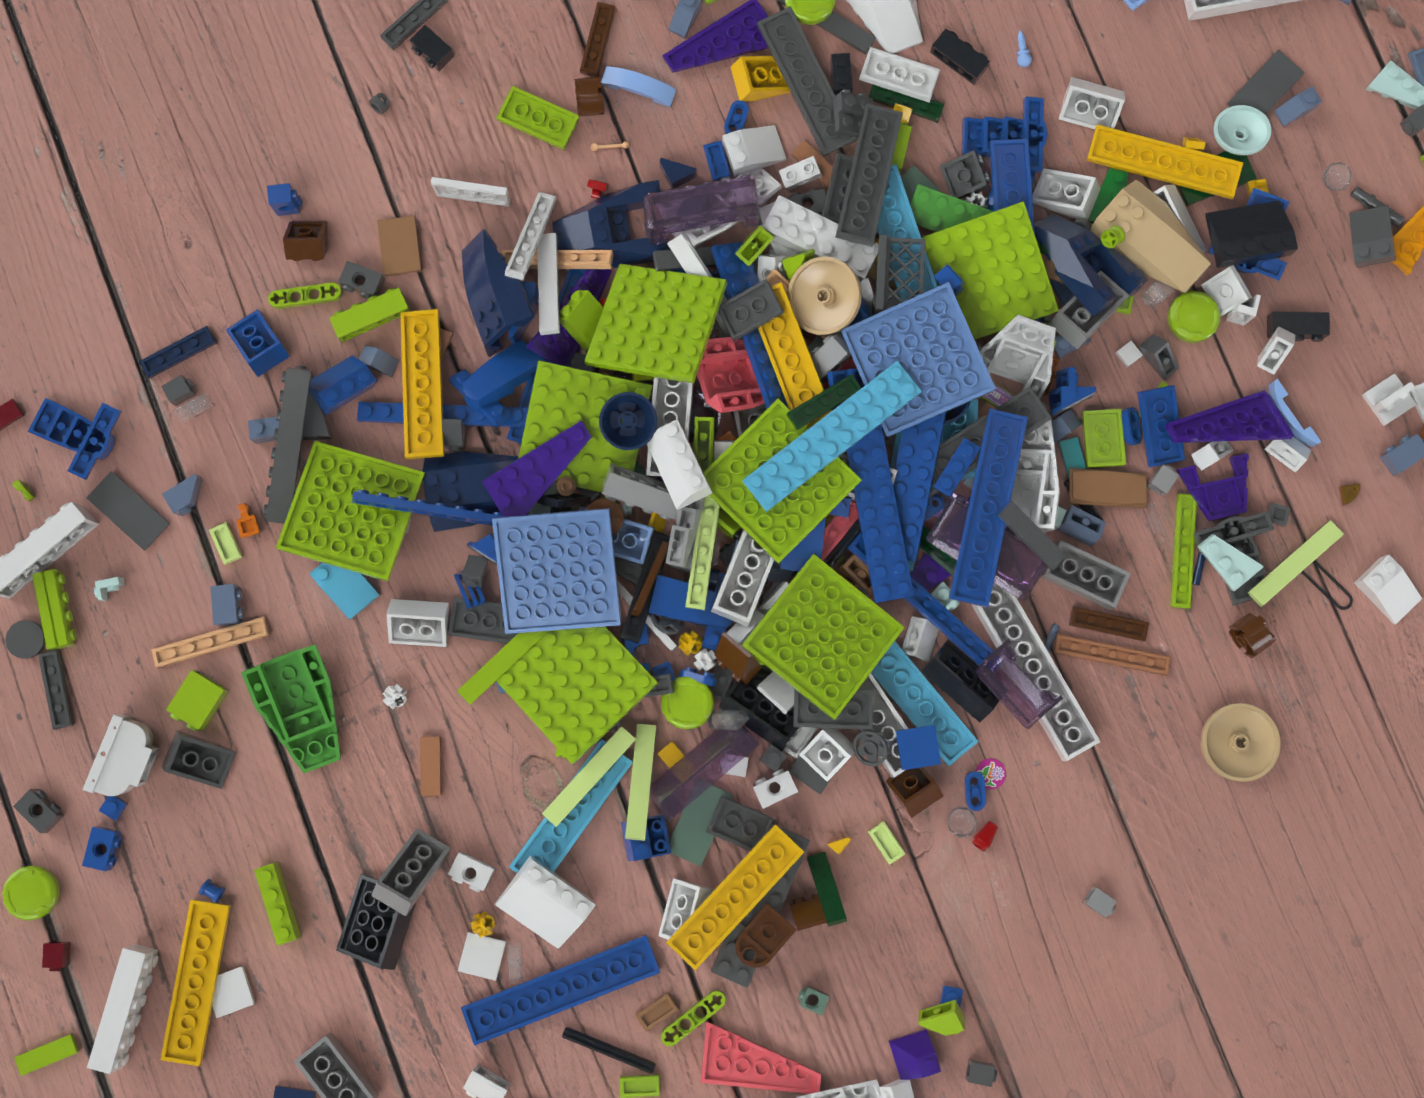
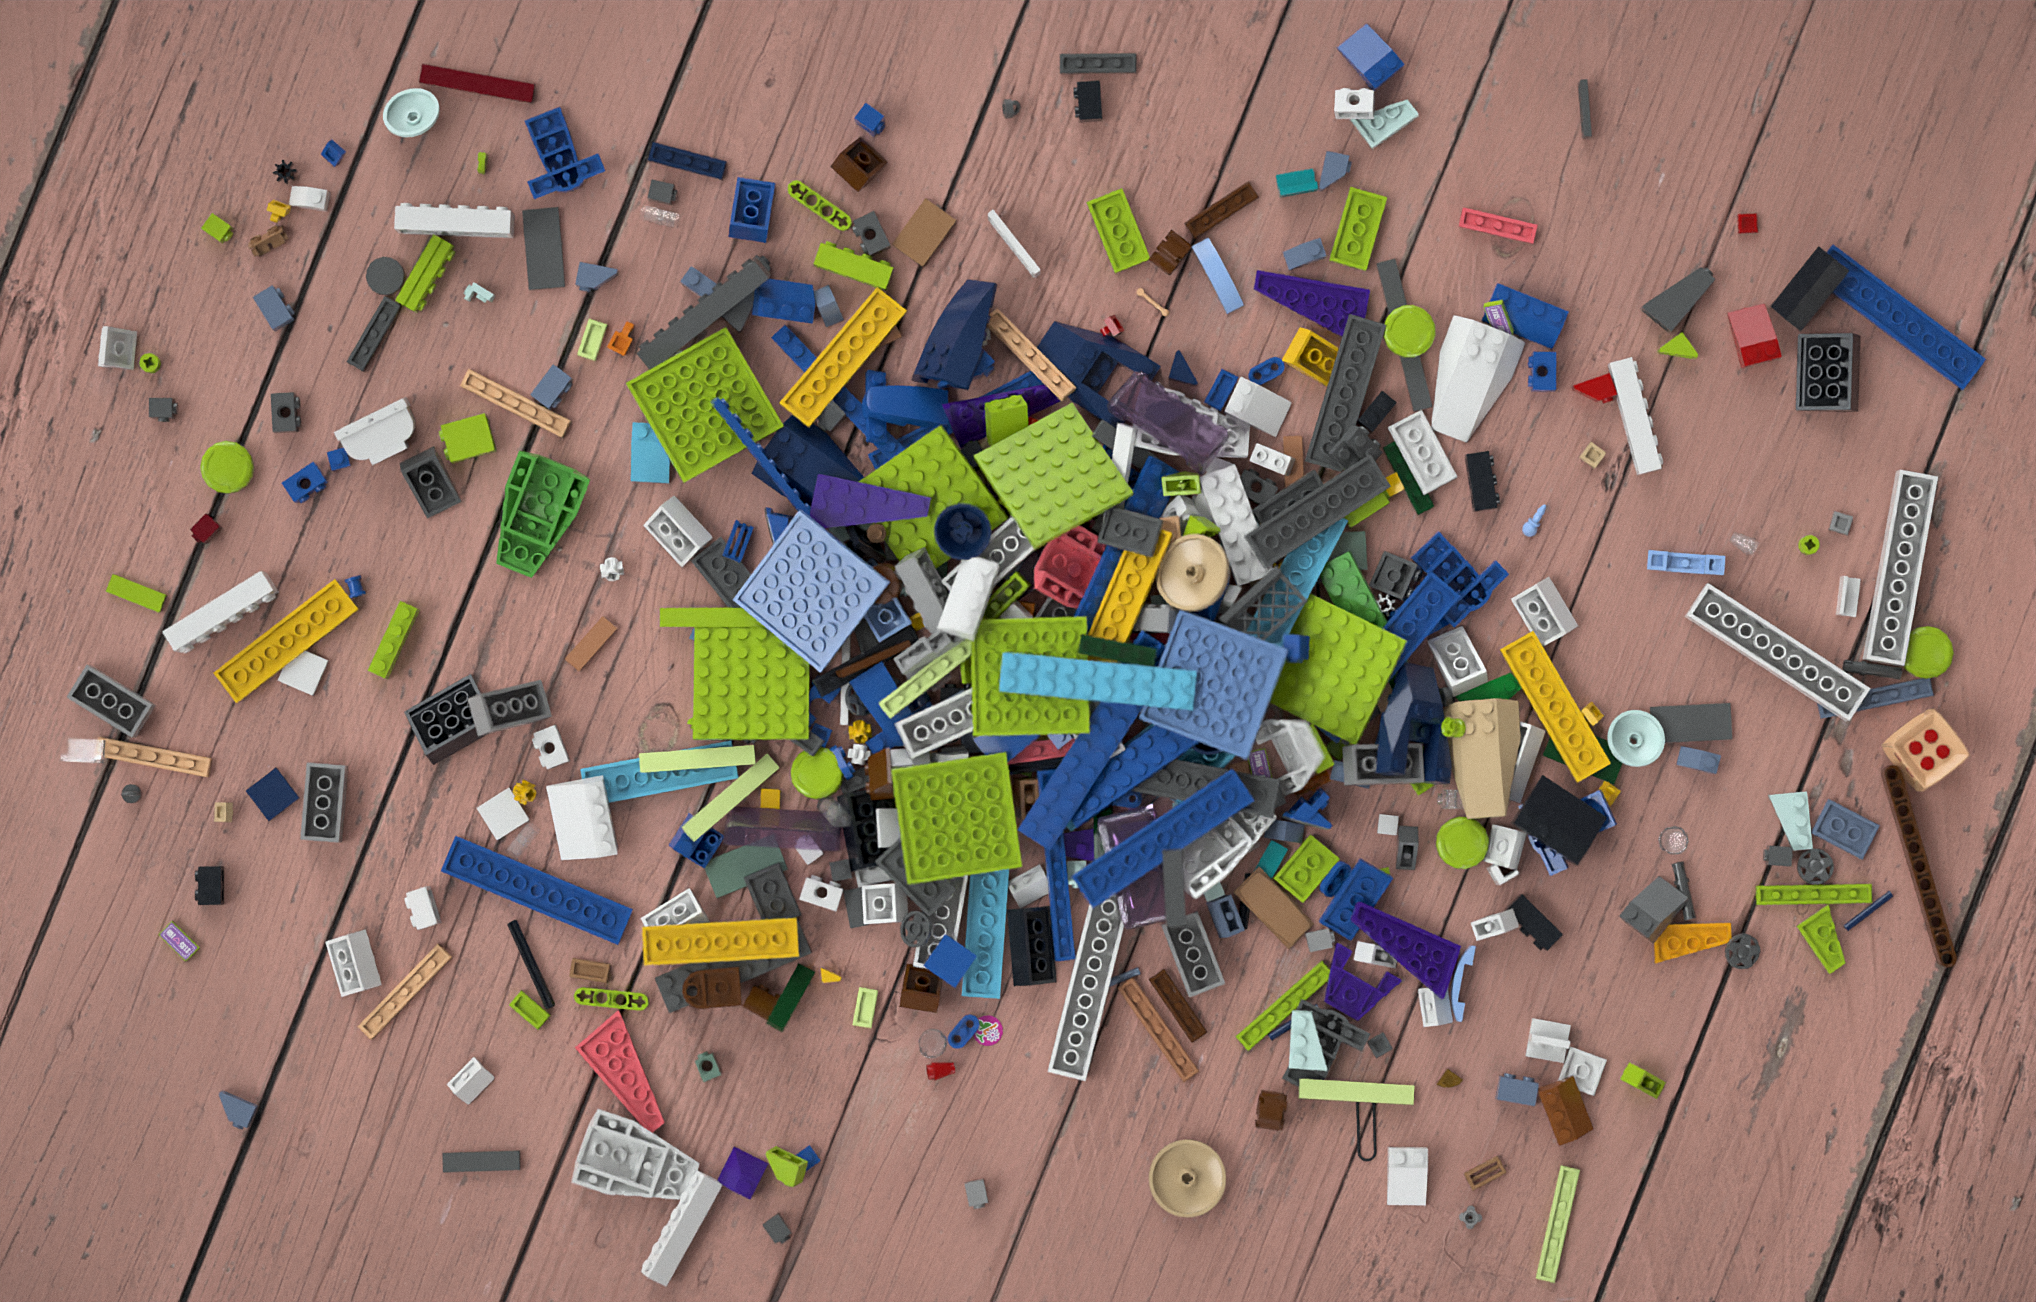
camera: 45 degrees right, 5 degrees up
(475, 571) = (753, 533): dark grey brick -> none
(530, 236) = (1025, 321): white tile -> none
(548, 285) = (1003, 370): white tile -> none
(957, 467) = (1170, 788): blue plate -> none
(1014, 687) = (1060, 983): clear purple windscreen -> none

